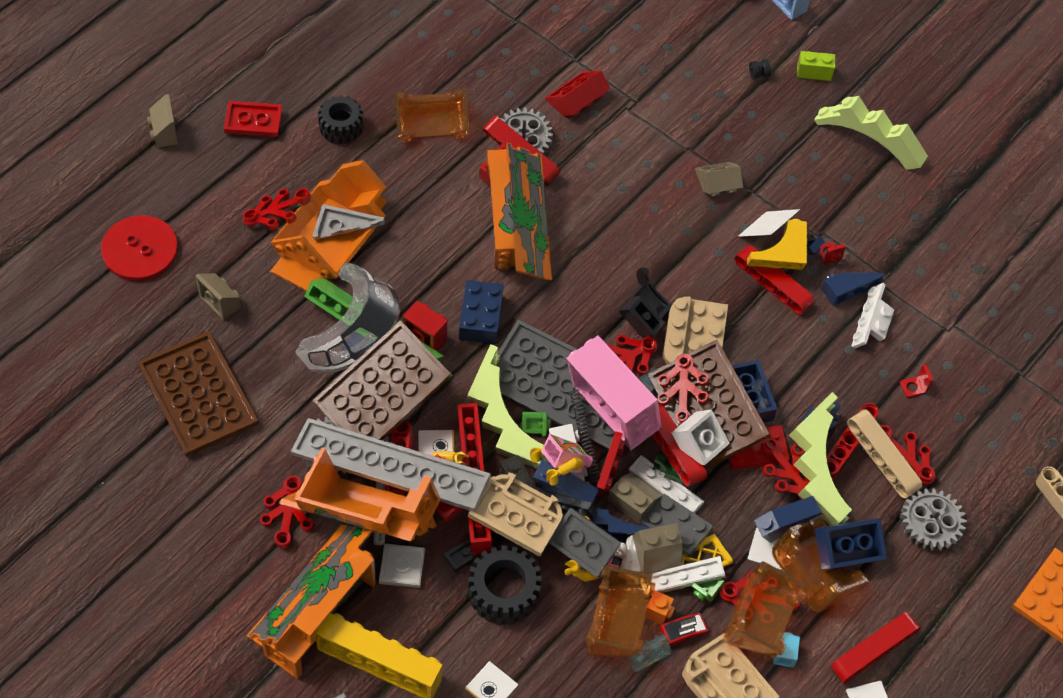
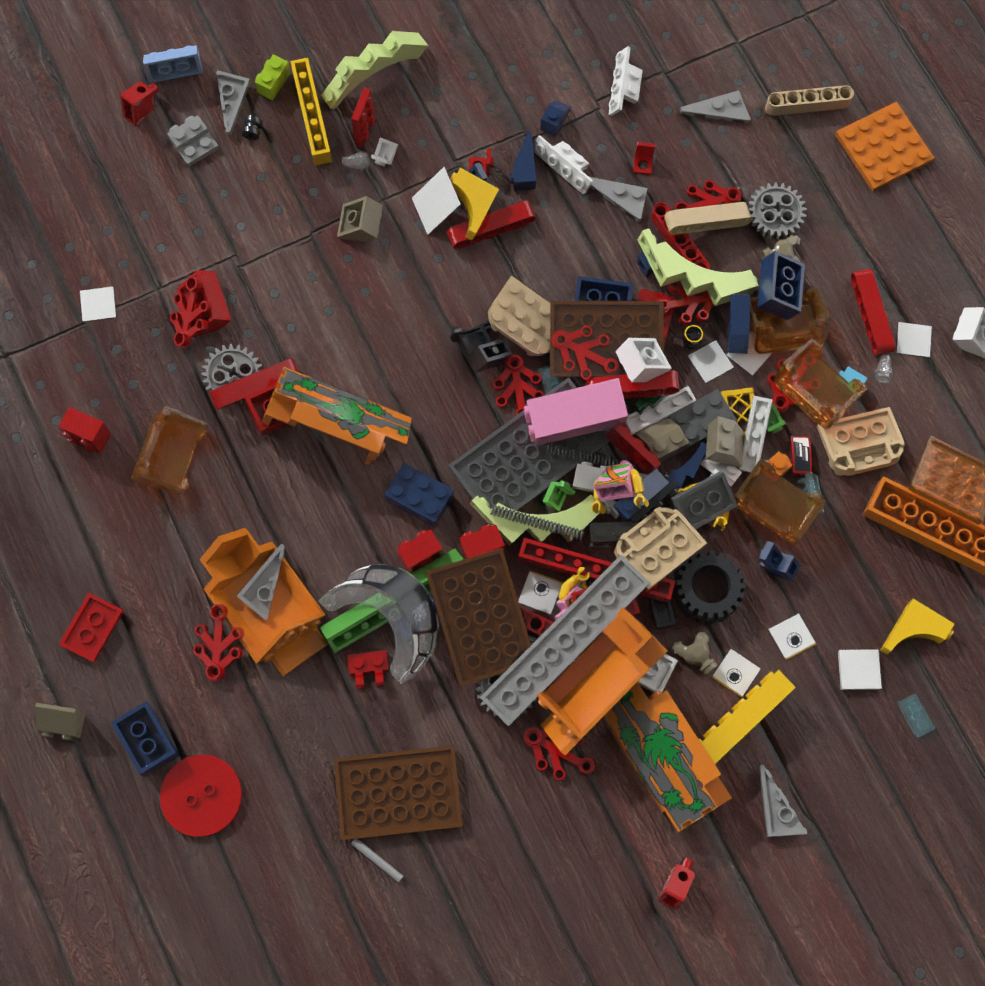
camera: 65 degrees left, 15 degrees up
(131, 399) = (377, 860): none -> light grey bar
(171, 187) = (145, 739): none -> dark blue brick
(196, 654) = (674, 889): none -> red torso
(218, 294) = (296, 734): dark tan slope -> none
(303, 324) = (367, 663): none -> red plate
(340, 130) = (129, 527): black tyre -> none
(418, 49) = (84, 430): none -> red brick
(433, 643) = (736, 673): none -> white sticker
(434, 599) = (696, 653): none -> dark tan animal
(462, 374) = (480, 542): none -> red brick
(492, 374) = (537, 521): none -> dark grey piece
(539, 24) = (97, 303): none -> white sticker
(557, 81) = (184, 334): none -> red plant
(560, 639) = (778, 563): none -> dark blue brick
(723, 32) = (192, 140): none -> light grey plate
(740, 515) = (710, 361): none -> white sticker
(759, 484) = (695, 334): none -> black wheel
(776, 156) = (358, 160): none -> clear cone
(780, 45) = (232, 95): none -> light grey wing
(795, 173) = (384, 152): none -> white bracket
(799, 103) = (311, 111): none -> yellow brick
(814, 137) = (363, 118): none -> red plate
(817, 679) = (884, 370): none -> clear cone
(869, 382) = (626, 196): none -> light grey wing
(895, 539) = (784, 247): none -> dark tan animal
(914, 293) = (554, 117): none -> dark blue slope
(987, 343) = (625, 83): none -> white bracket
(1016, 436) = (725, 107): none -> light grey wing

